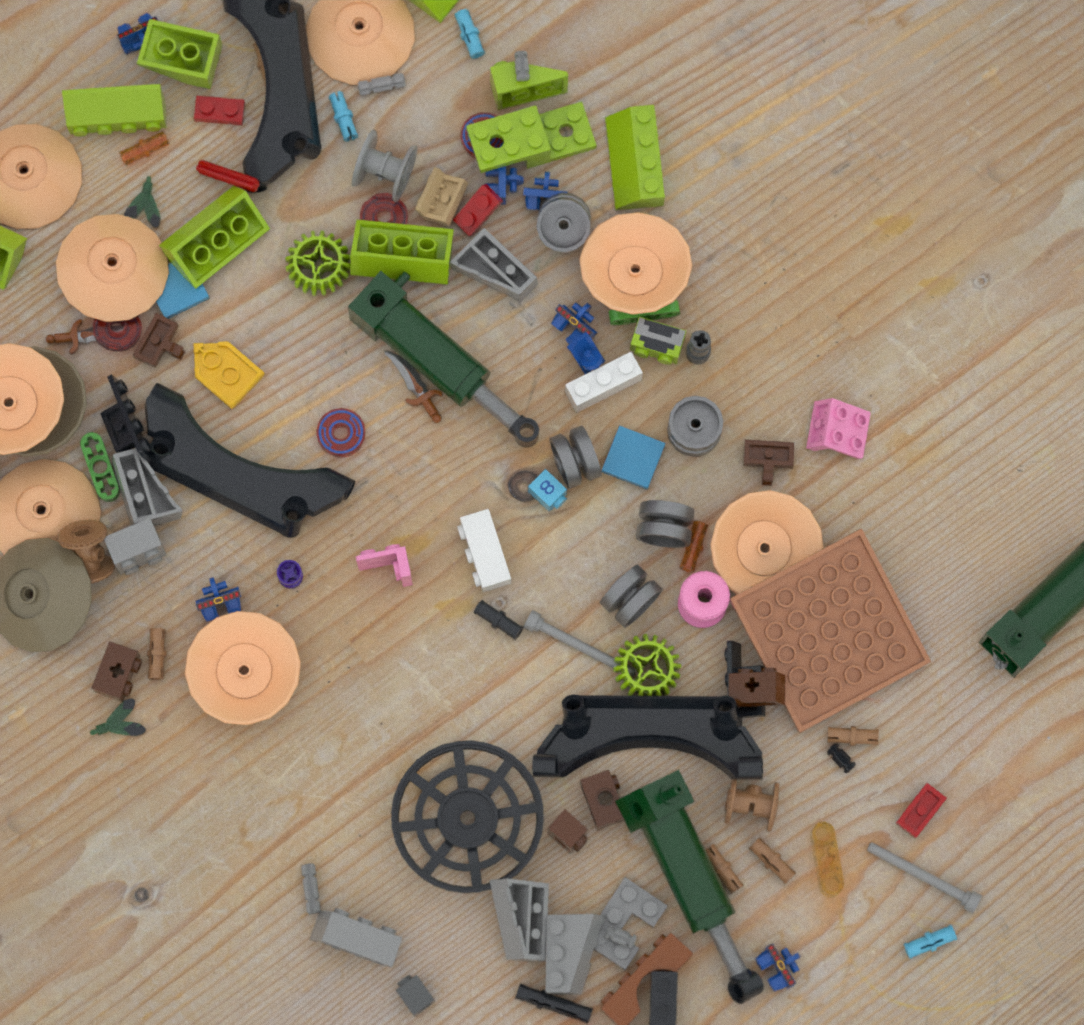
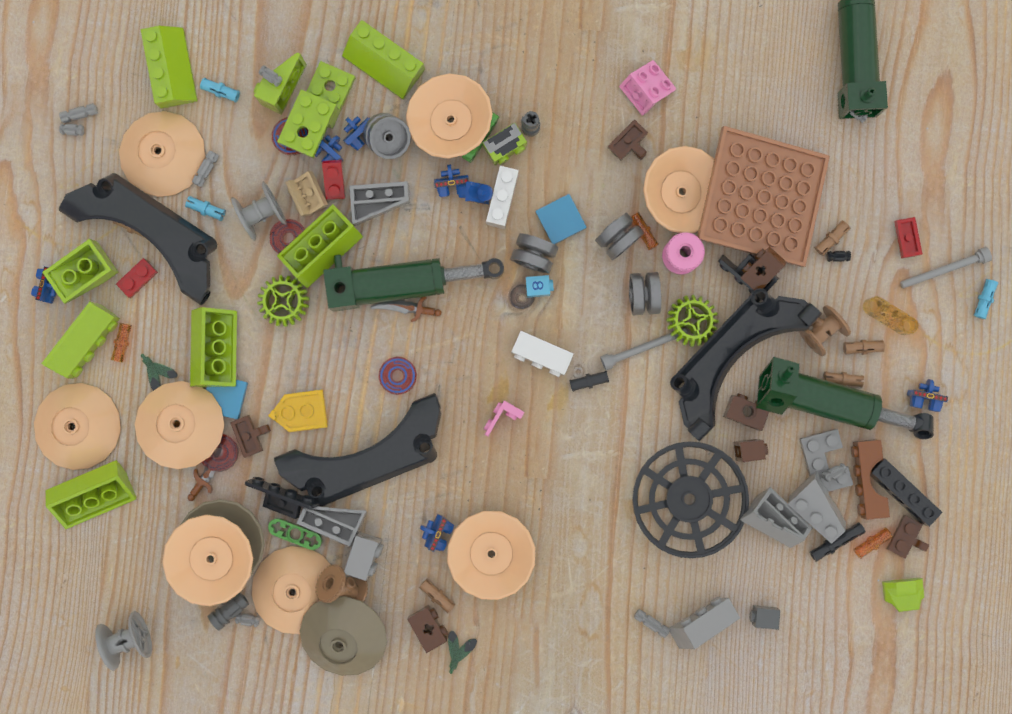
camera: 40 degrees left, 10 degrees up
(228, 176) = (182, 308): red axle -> none
(287, 570) = (455, 480): dark purple wheel -> none
(692, 440) = (587, 167): flat silver wheel -> none

